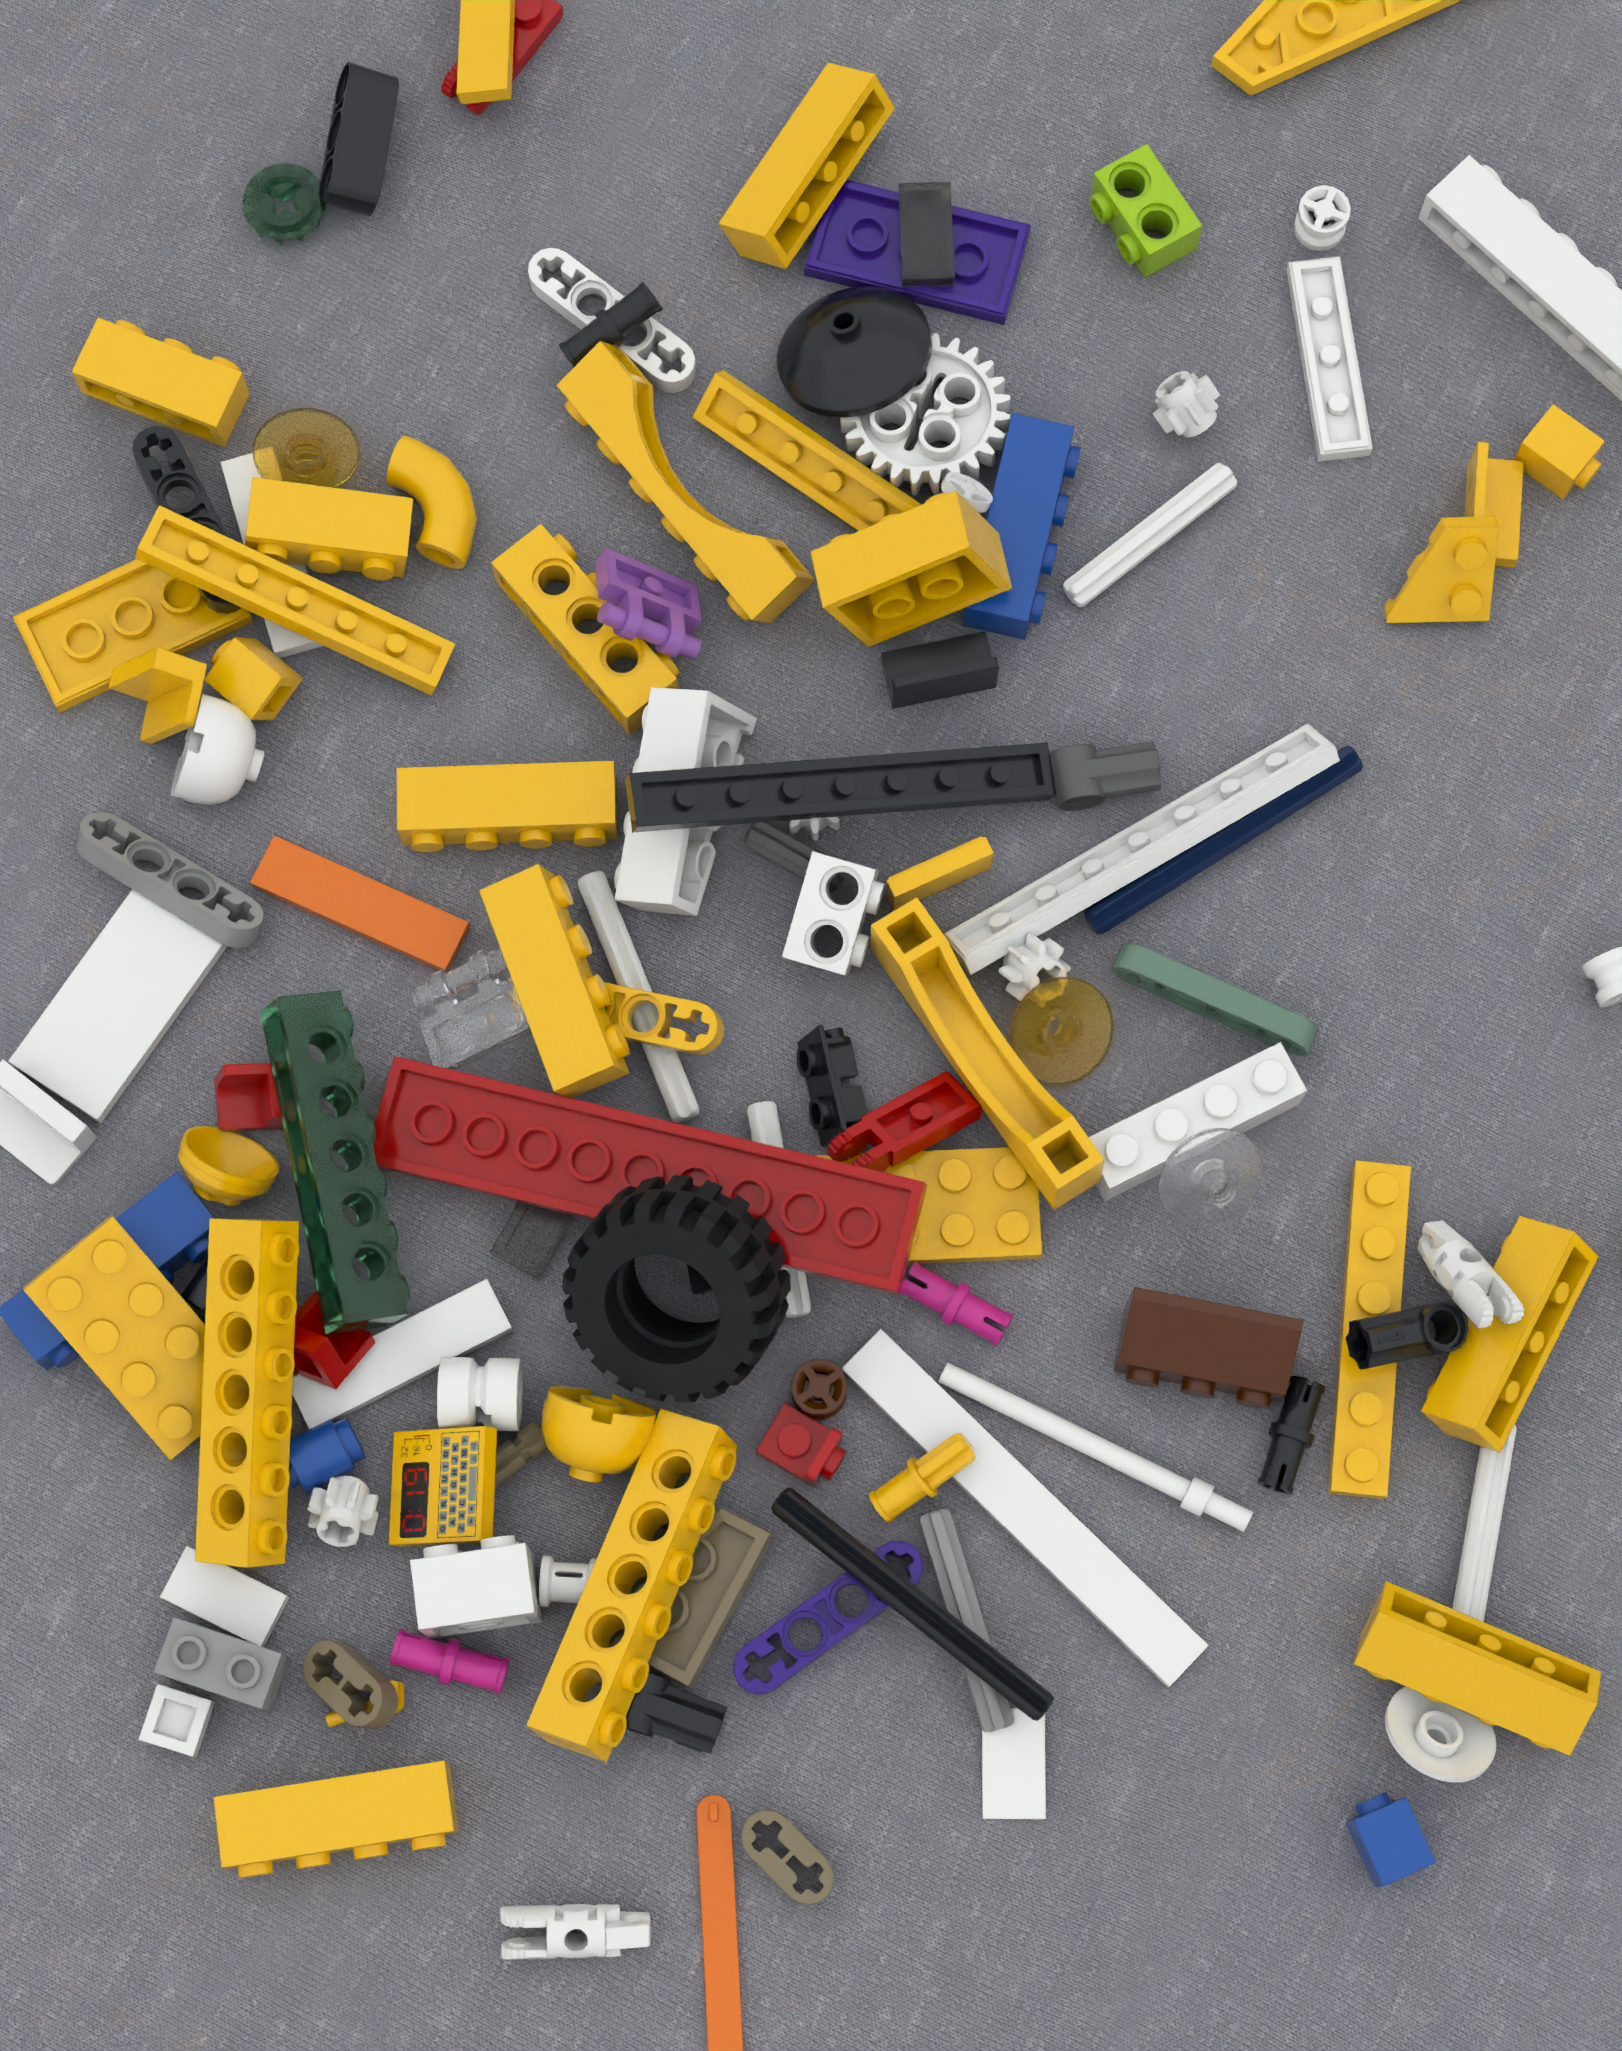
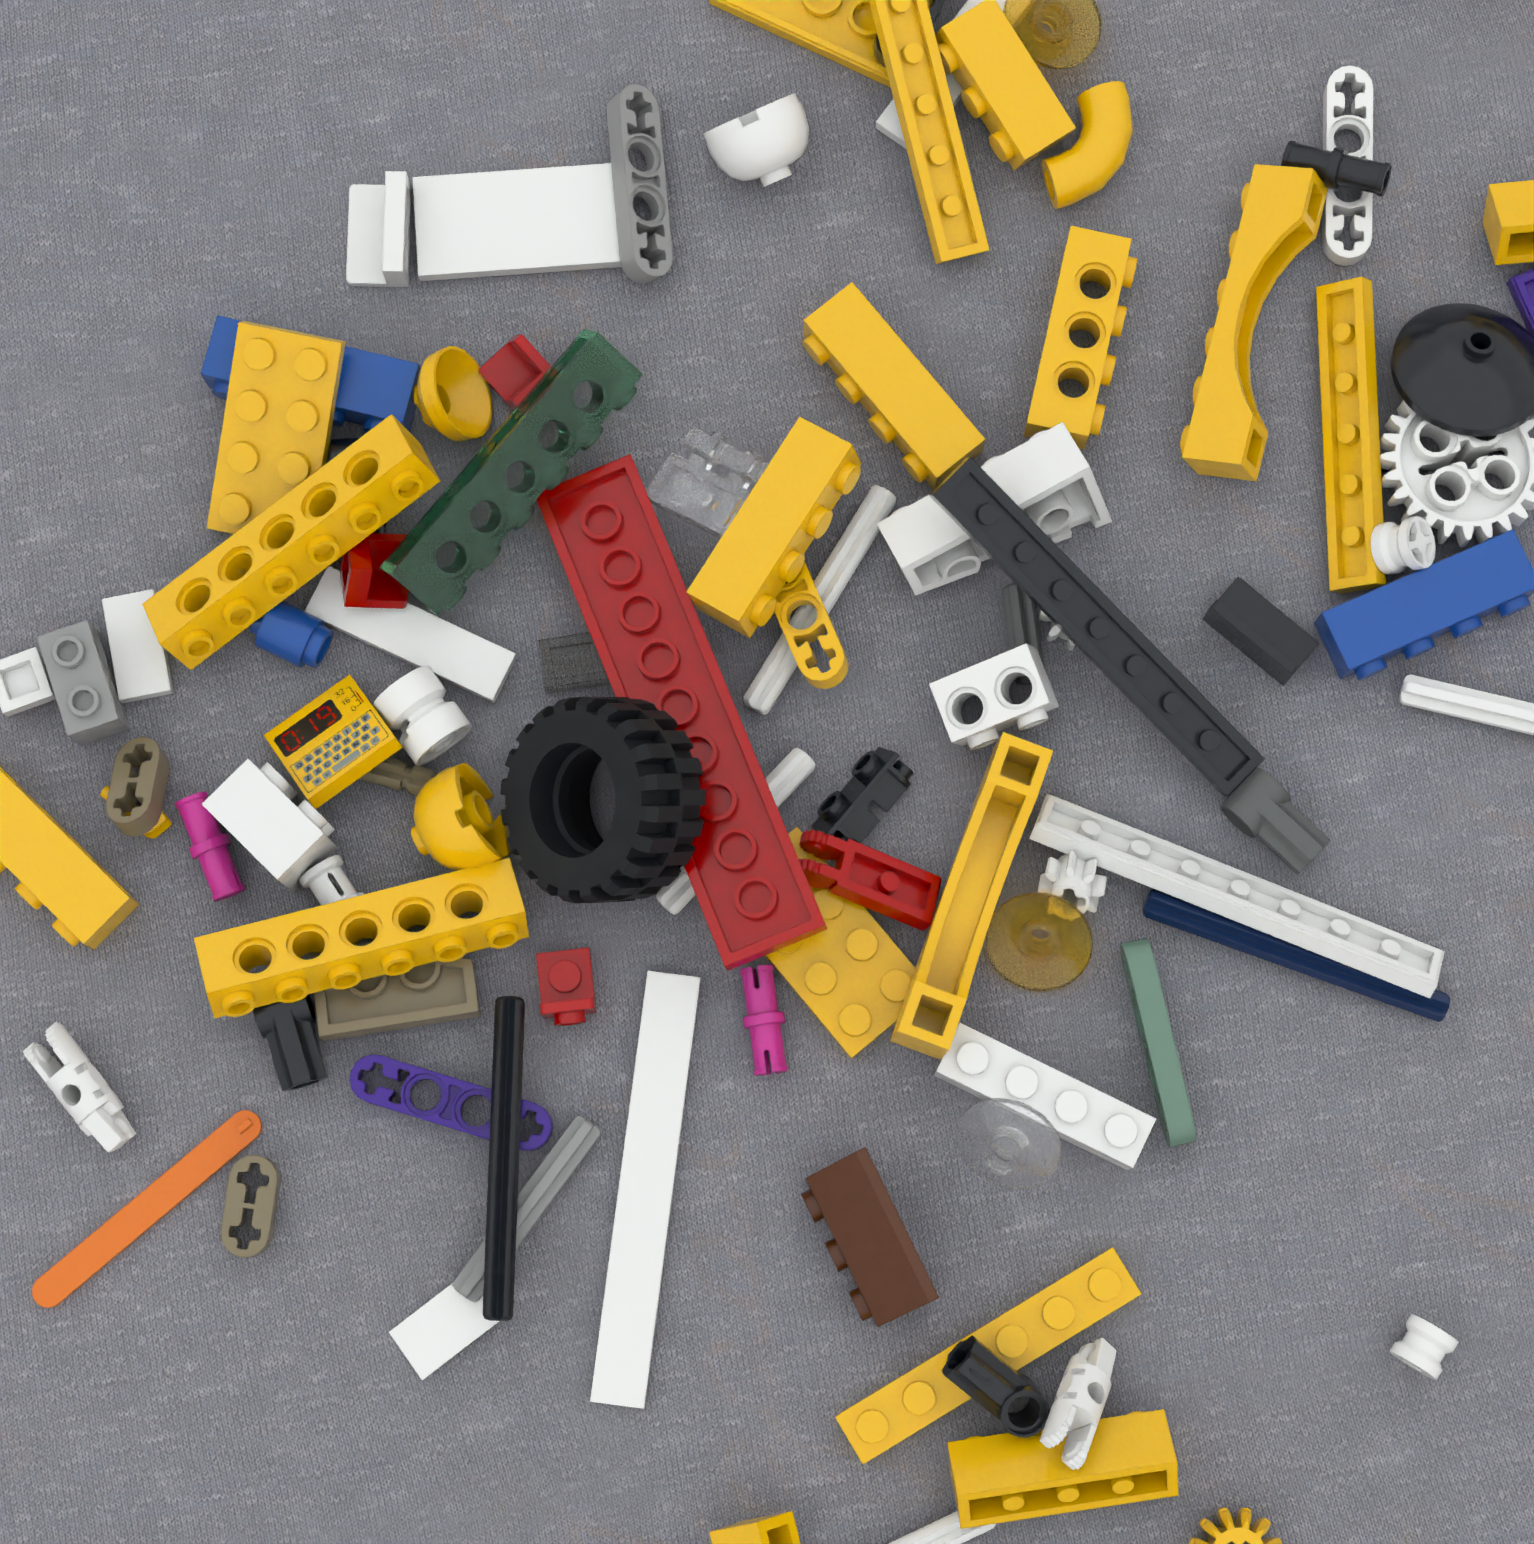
camera: 55 degrees right, 5 degrees up
(169, 686) = (785, 66): yellow panel -> none
(252, 677) = (841, 121): yellow brick -> none
(343, 1511) = (260, 682): white gear -> none
(360, 904) = (731, 339): orange tile -> none
(641, 591) = (1142, 364): medium lavender plate -> none
(816, 1380) = (613, 959): reddish brown wheel -> none
(911, 568) = (1315, 546): yellow brick -> none
(922, 1477) = (608, 1094): yellow axle -> none
(939, 872) = (1093, 753): yellow tile -> none
(1194, 1495) = (752, 1314): white bar -> none
(1291, 1435) = (856, 1354): black pin -> none

